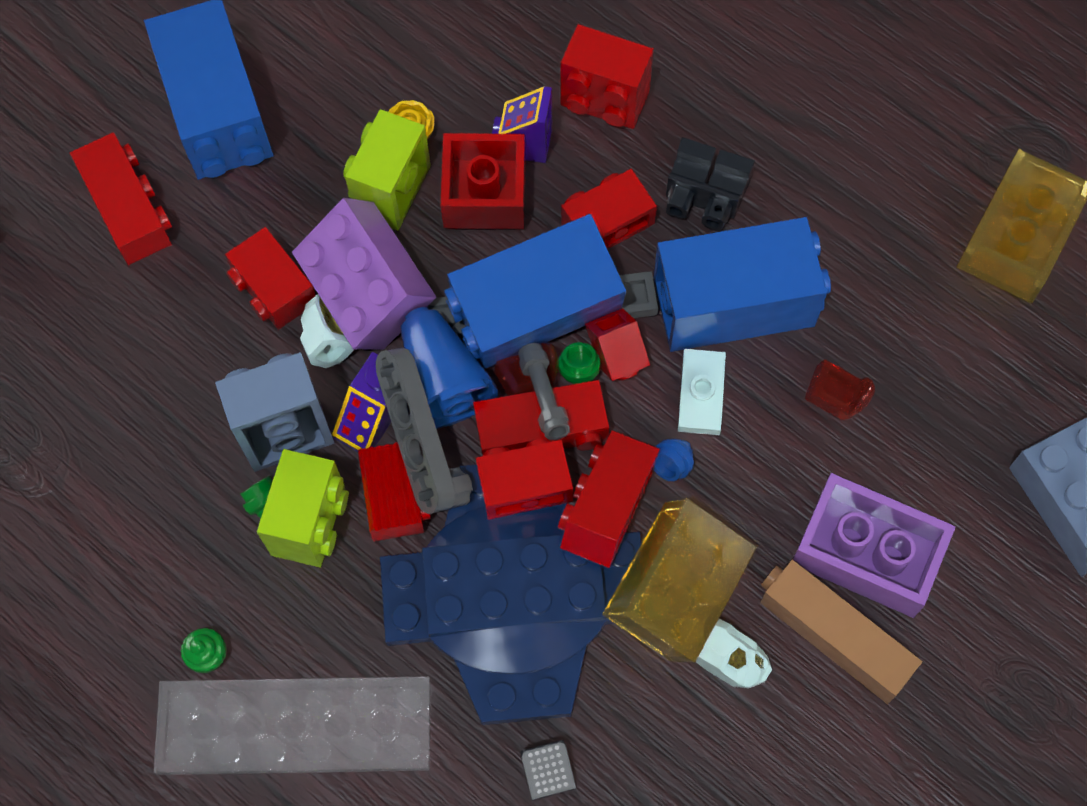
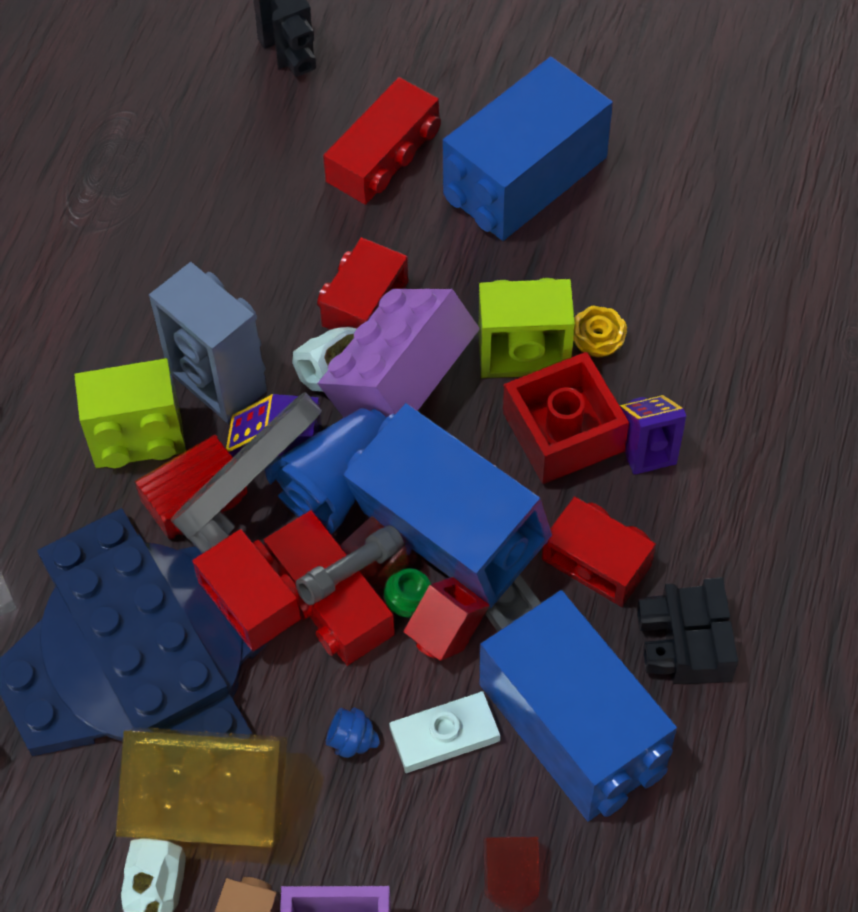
camera: 65 degrees right, 10 degrees down
(605, 76) = (748, 474): red brick -> none
(607, 498) = (264, 678): red brick -> none

